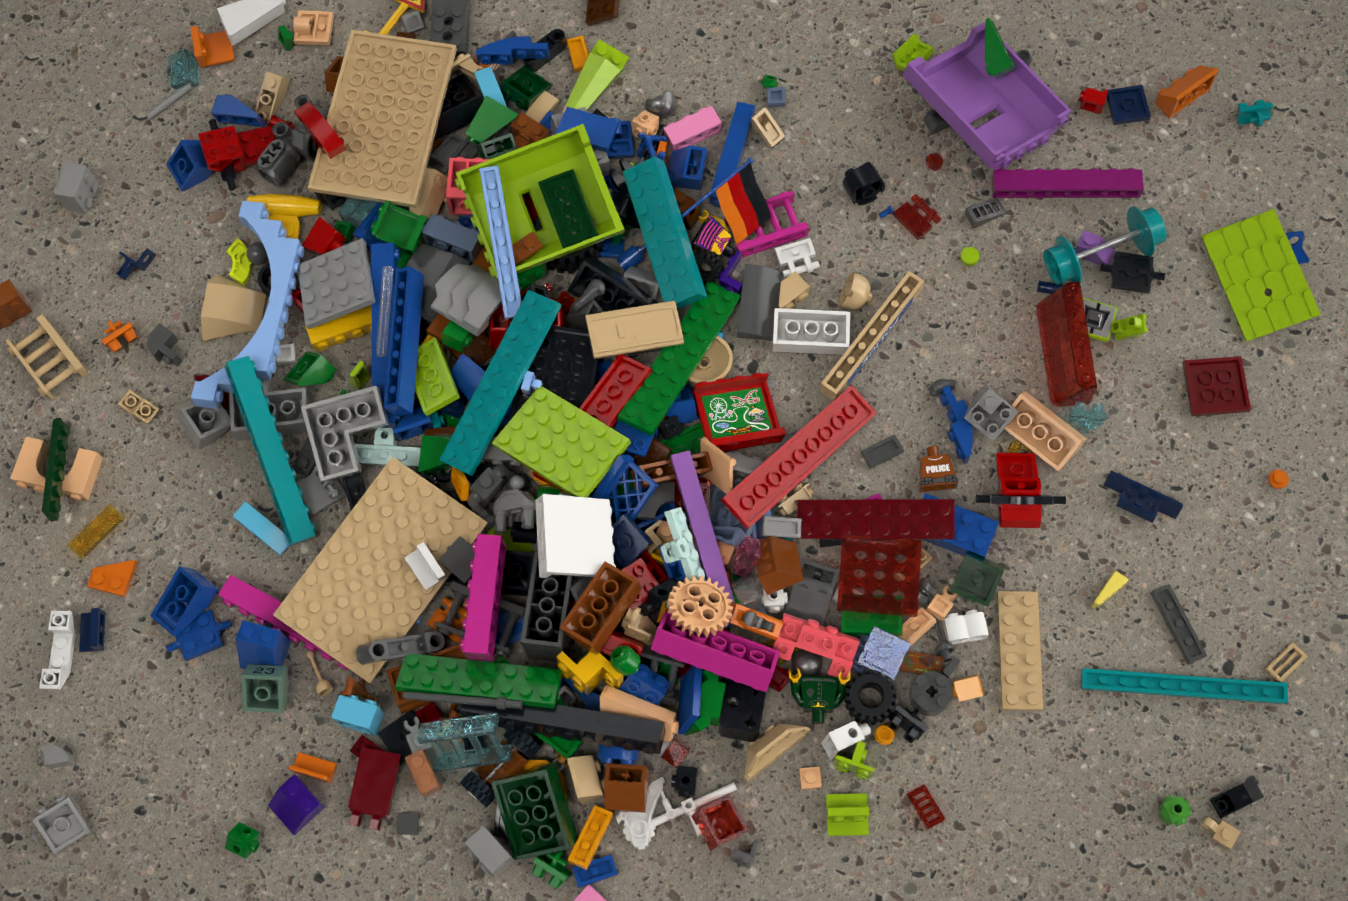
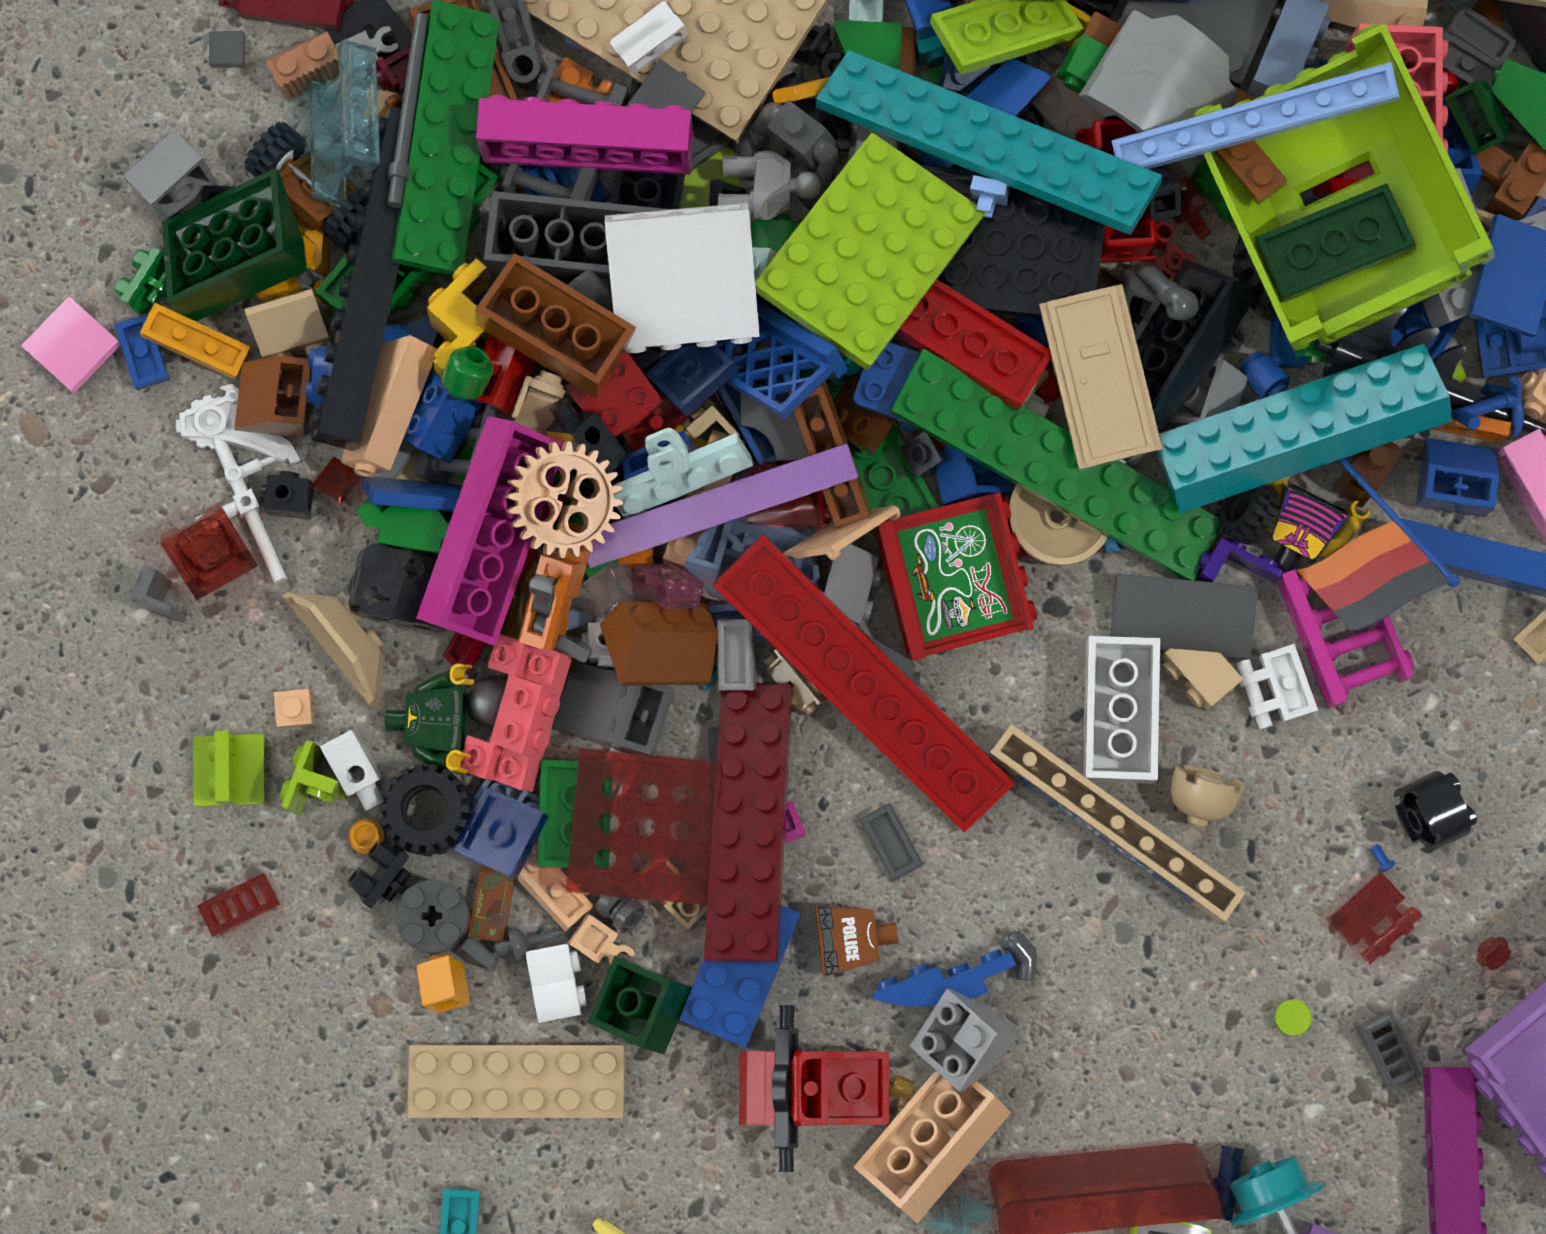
camera: 85 degrees right, 10 degrees up
(780, 609) = (574, 647): none -> dark grey tile

